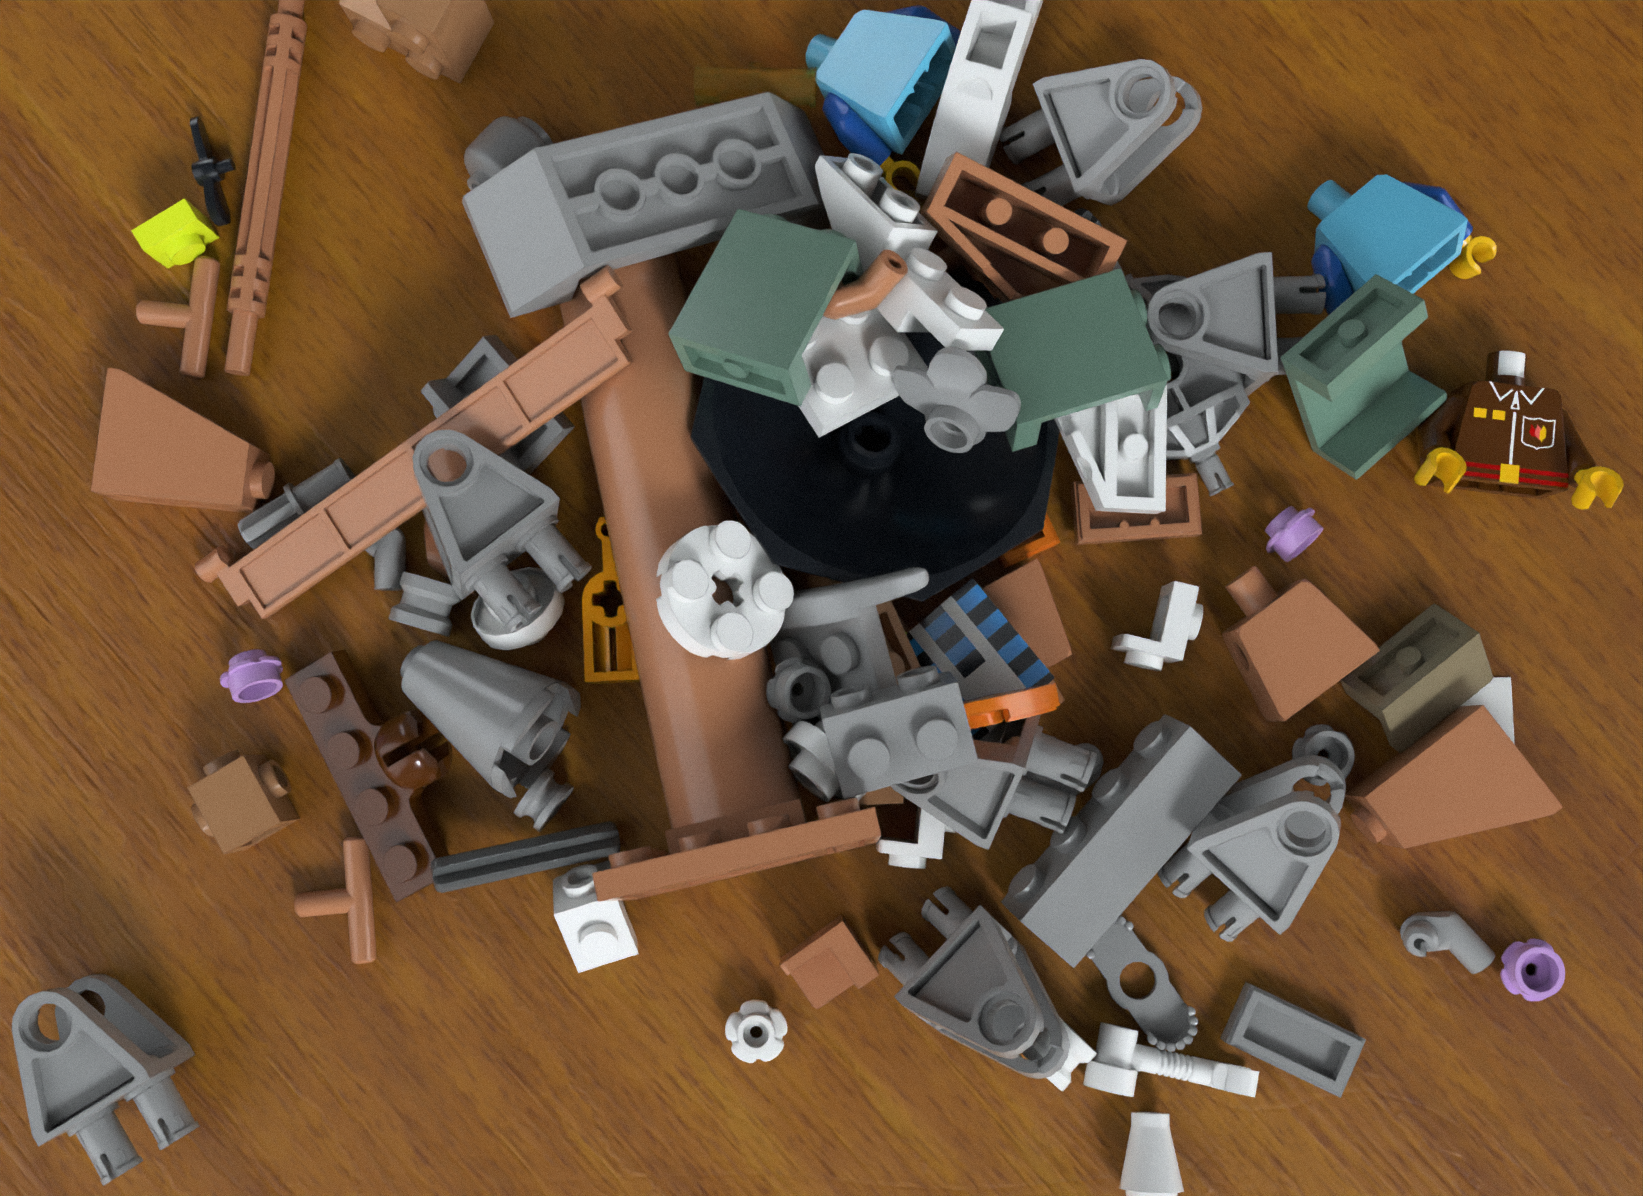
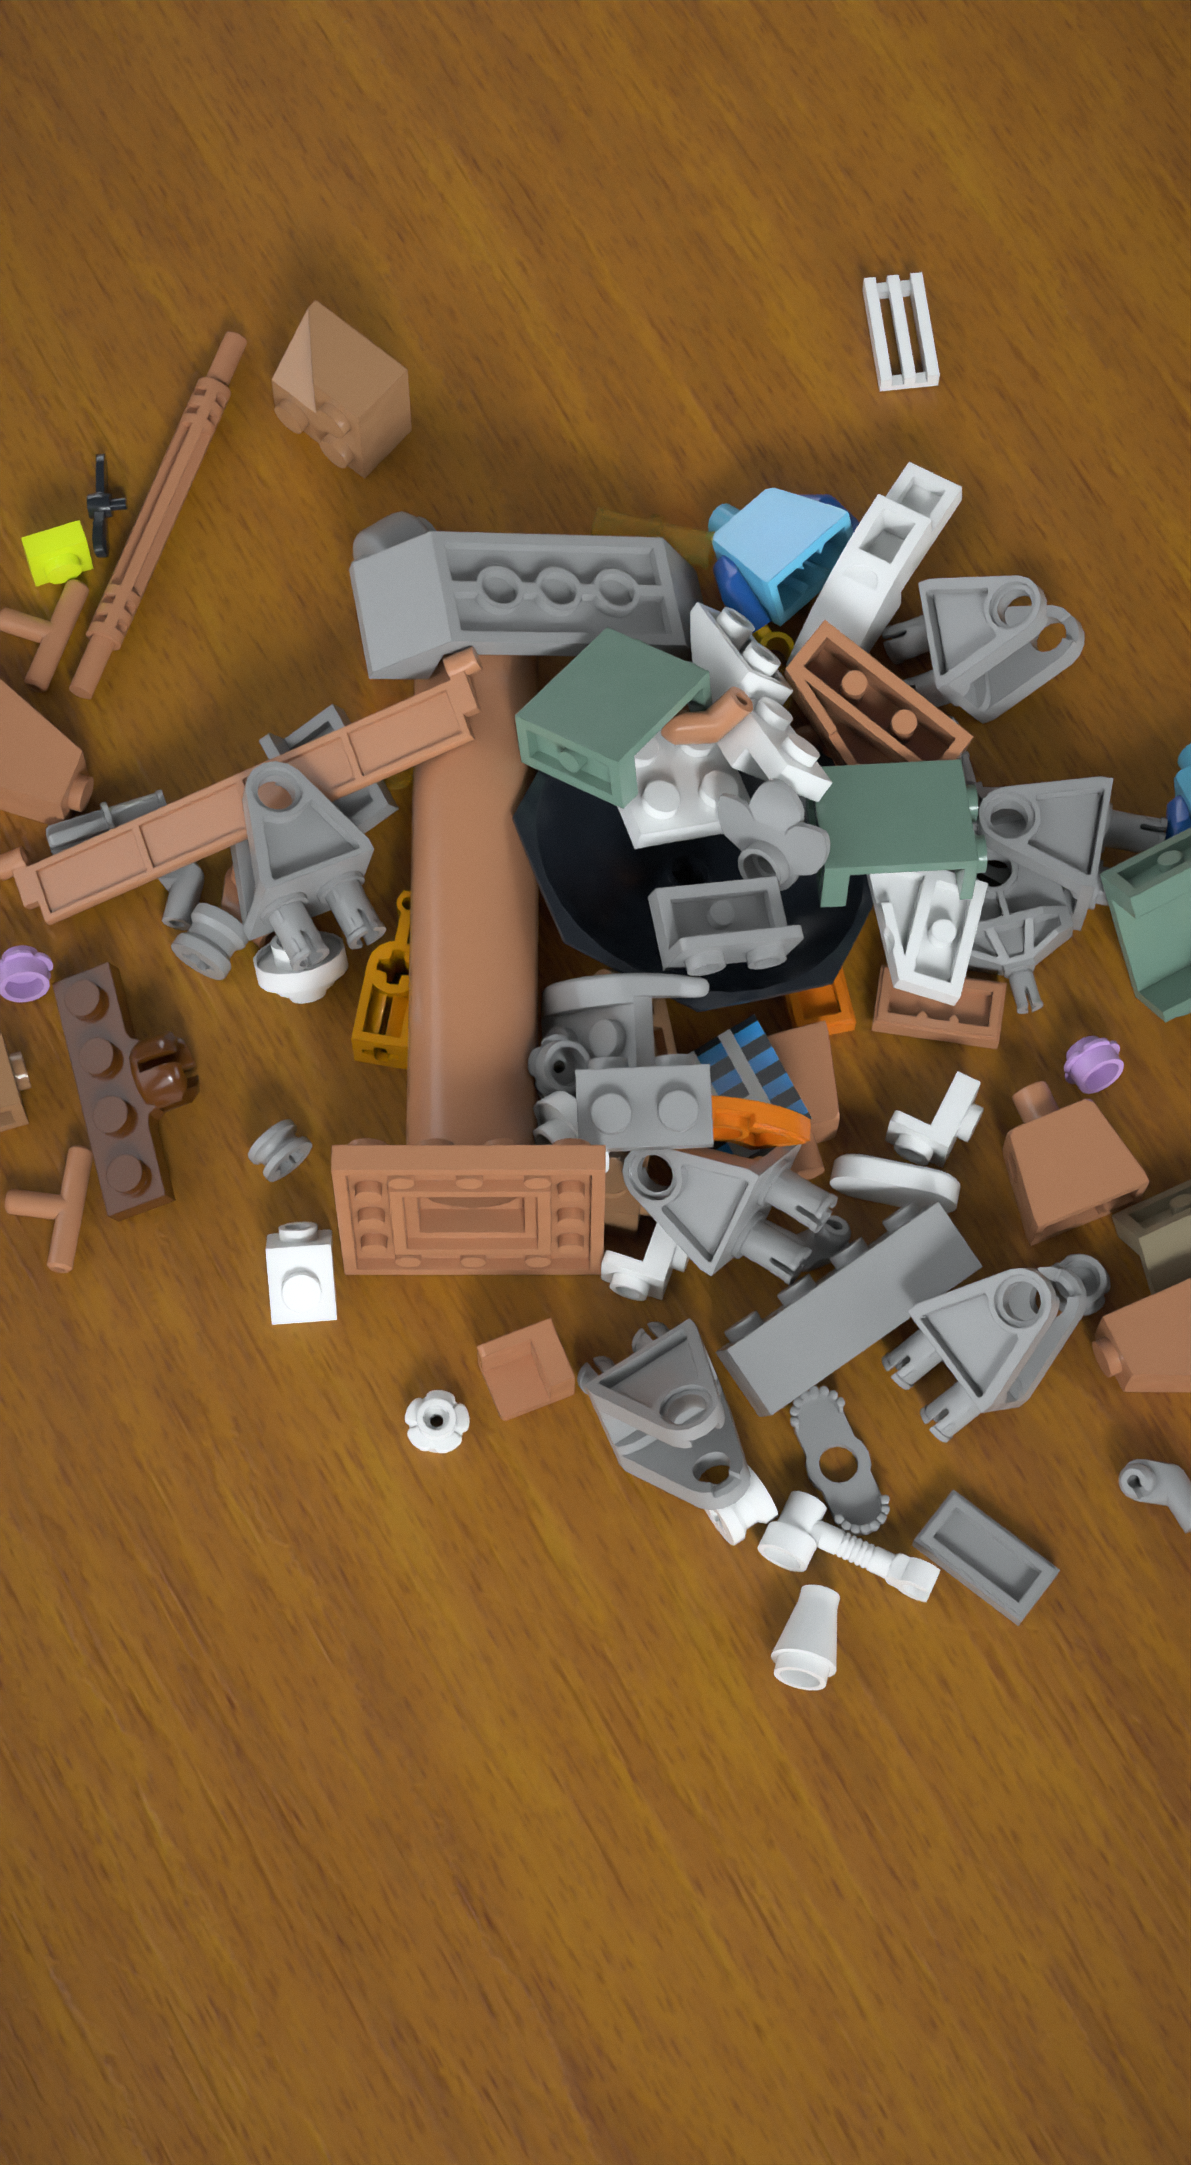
camera: 15 degrees right, 15 degrees down
(491, 711) = (254, 1050): light grey cone -> none
(524, 856) = (245, 1195): dark grey axle -> none
(687, 589) = (530, 931): white plate -> none
(926, 505) = (721, 925): none -> light grey bracket
(1134, 698) = (893, 1182): none -> white tile

